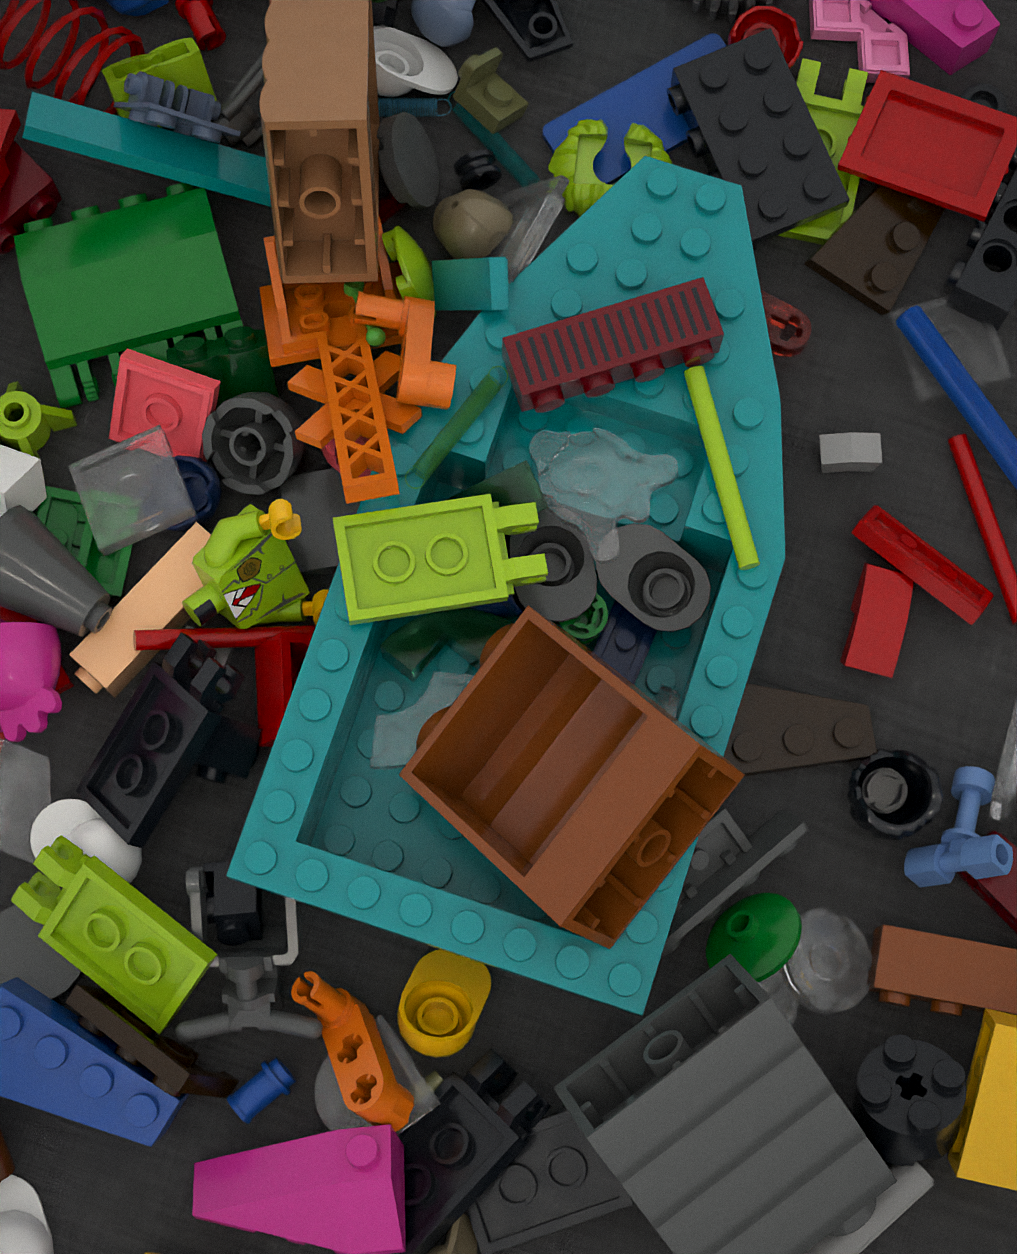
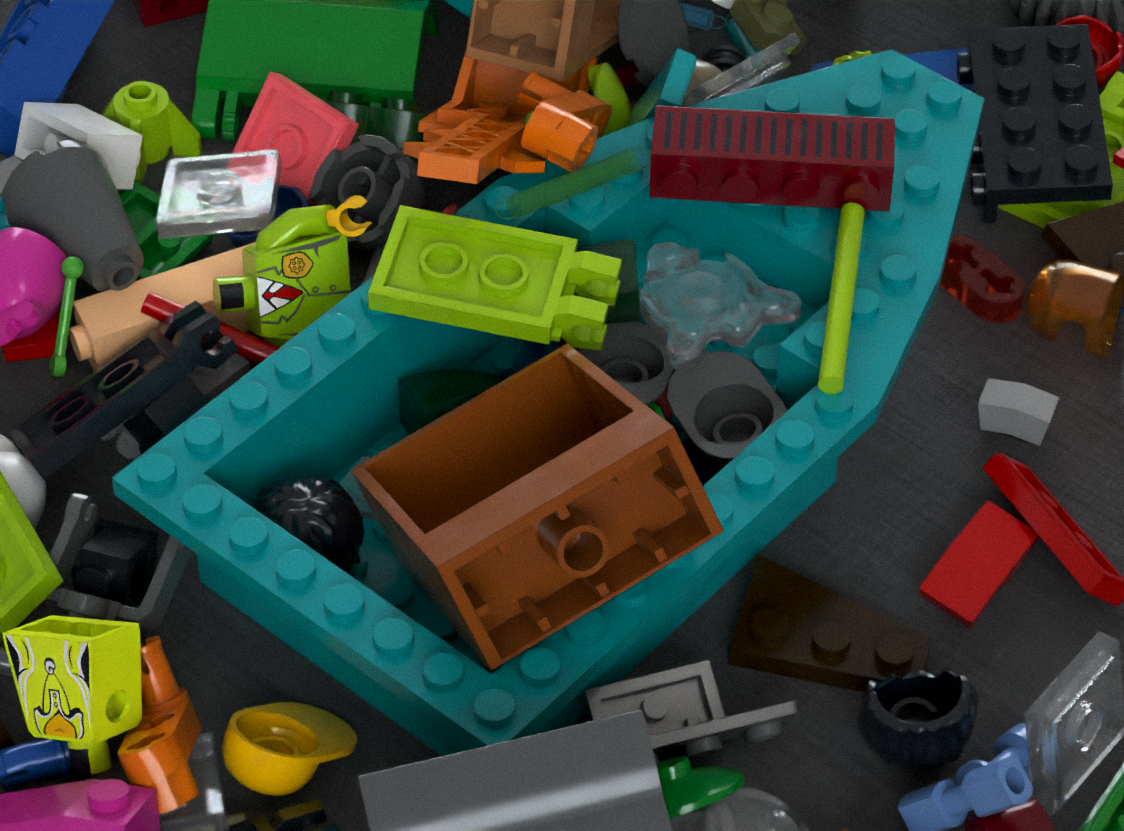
camera: 25 degrees right, 30 degrees down
(61, 636) = (72, 269): none -> bright green hinge
(276, 1045) = (78, 683): none -> neon yellow torso
(378, 822) = (317, 514): none -> black hair
(858, 329) = (1080, 294): none -> clear orange helmet

